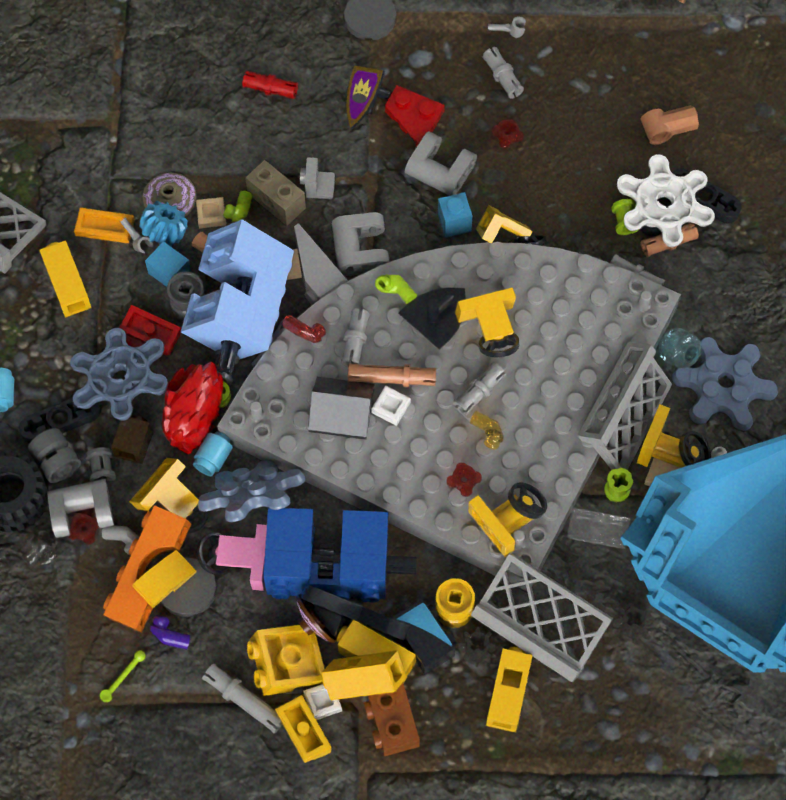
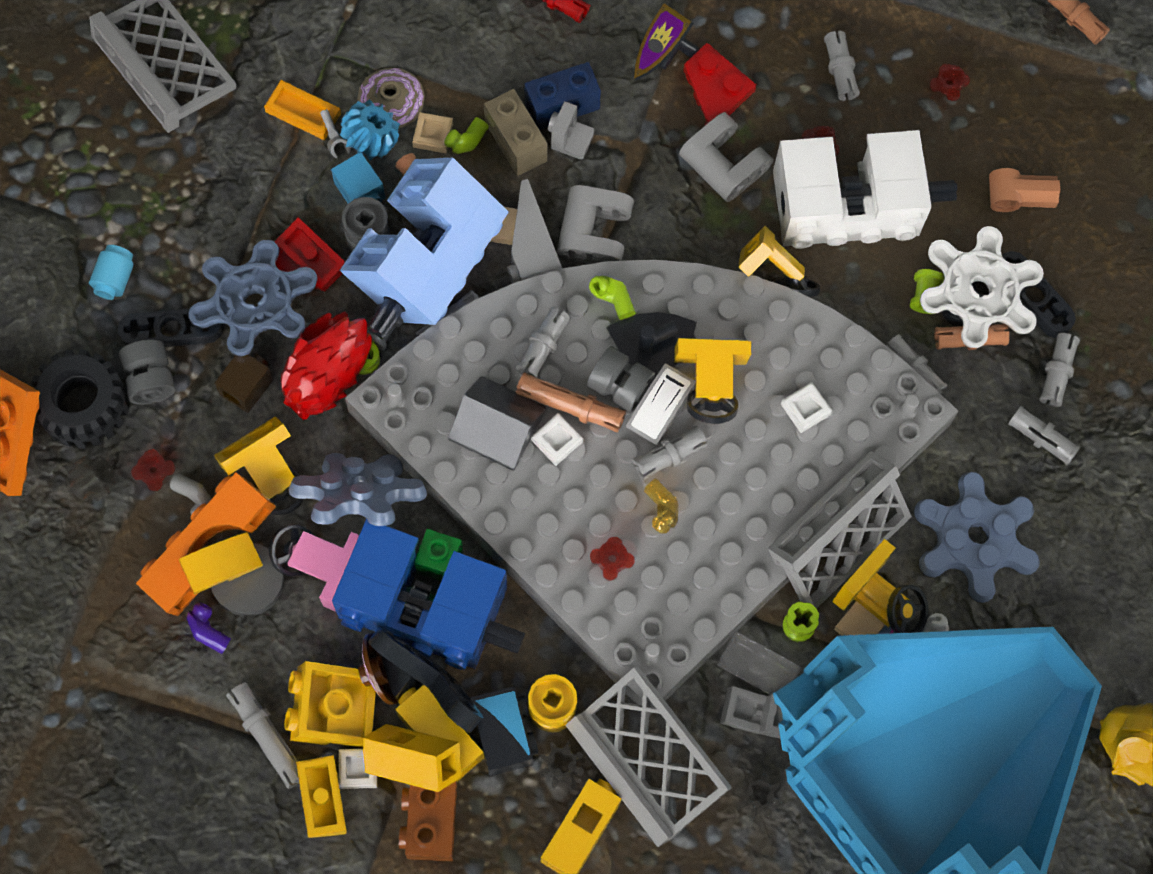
camera: 15 degrees right, 5 degrees up
(65, 278) = (233, 161): yellow brick -> none
(79, 498) = (159, 431): light grey connector -> none
(104, 471) = (194, 389): dark grey bush -> none
(106, 695) = (111, 678): lime hinge -> none
(212, 453) = (331, 427): medium azure brick -> none
(294, 153) = (572, 85): none -> dark blue brick
(297, 327) = (481, 312): clear red arm -> none
(328, 522) = (435, 554): none -> green brick
(414, 344) = (610, 372): none -> dark grey wheel
(454, 215) = (720, 225): dark azure brick -> none
(460, 355) = (661, 404): none -> white slope
(509, 516) = (650, 621): yellow piece -> none
(511, 28) = (872, 12): light grey hand -> none
(568, 325) = (806, 407): none -> white tile
(570, 159) = (882, 202): none -> white piece
(587, 54) = (950, 73): none -> clear red plate
(607, 563) = (751, 712): none -> light grey slope
(680, 348) = (935, 476): clear light blue head -> none
(729, 290) = (1044, 435): none -> light grey pin
(742, 244) = (1059, 369): none -> light grey pin

